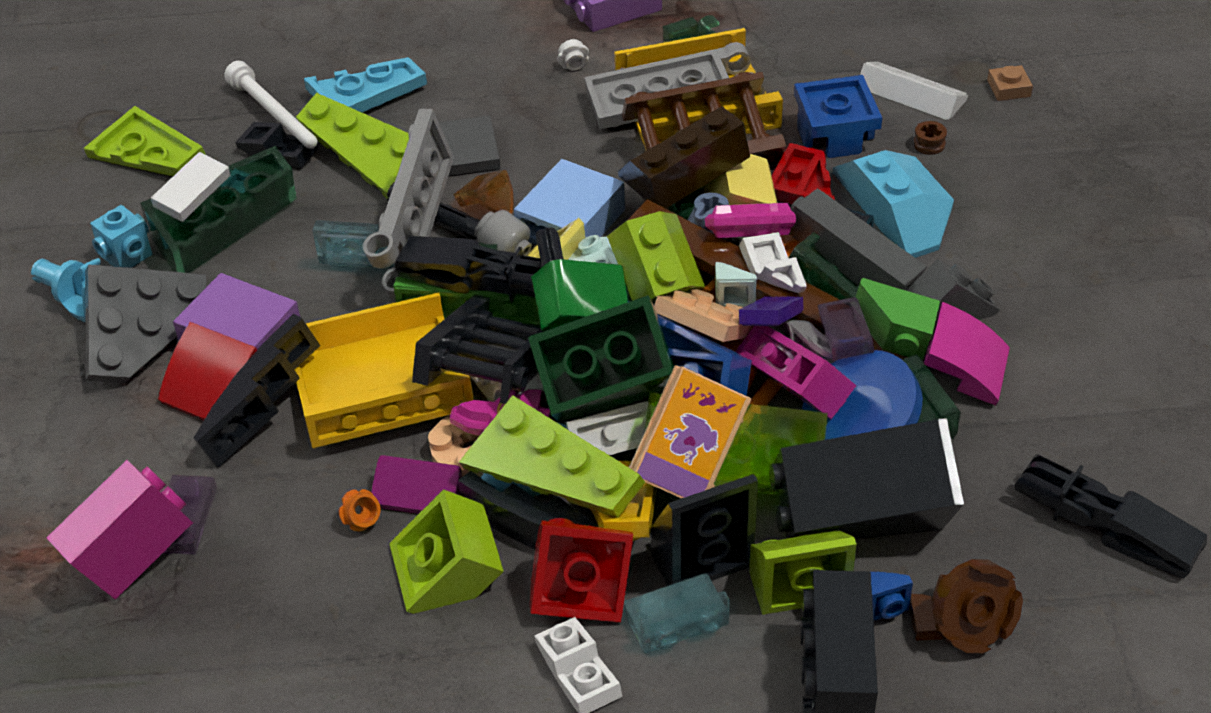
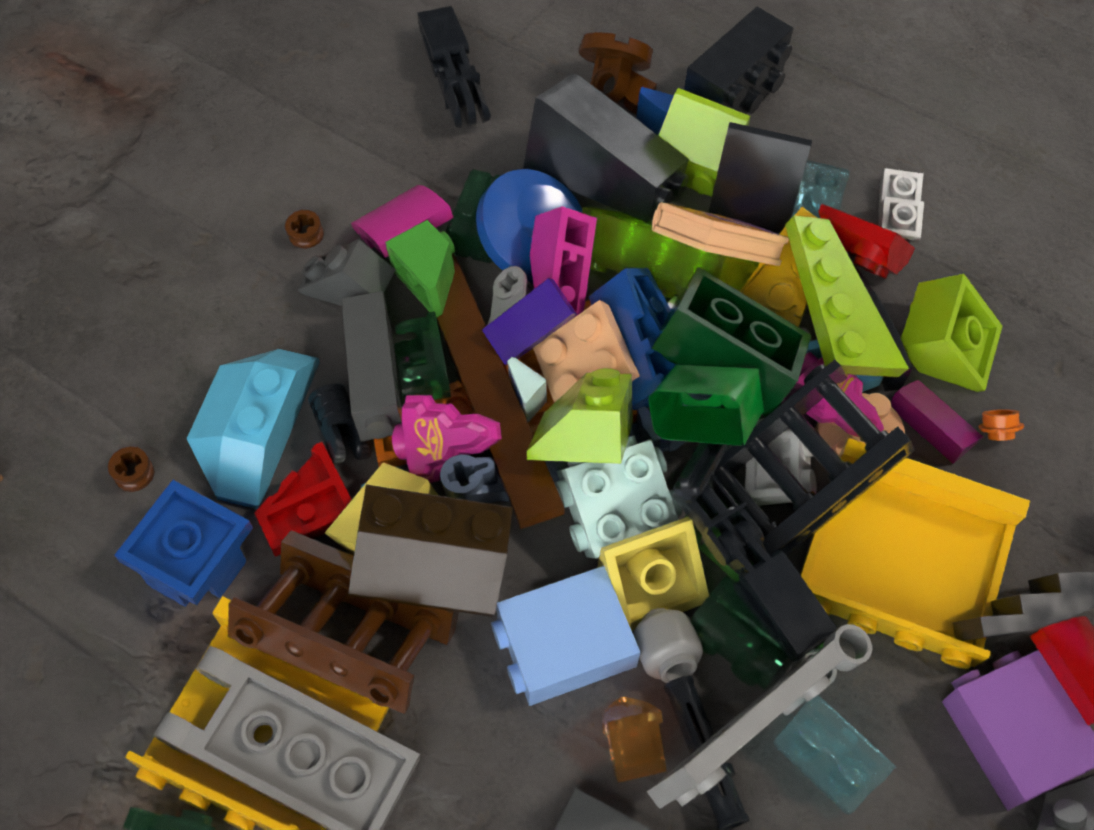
camera: 145 degrees left, 15 degrees up
(770, 263) = (473, 379): white slope -> none
(845, 328) = (483, 274): clear purple tile -> none
(913, 90) = (57, 554): white slope -> none
(1034, 330) = (294, 225): none -> reddish brown bush

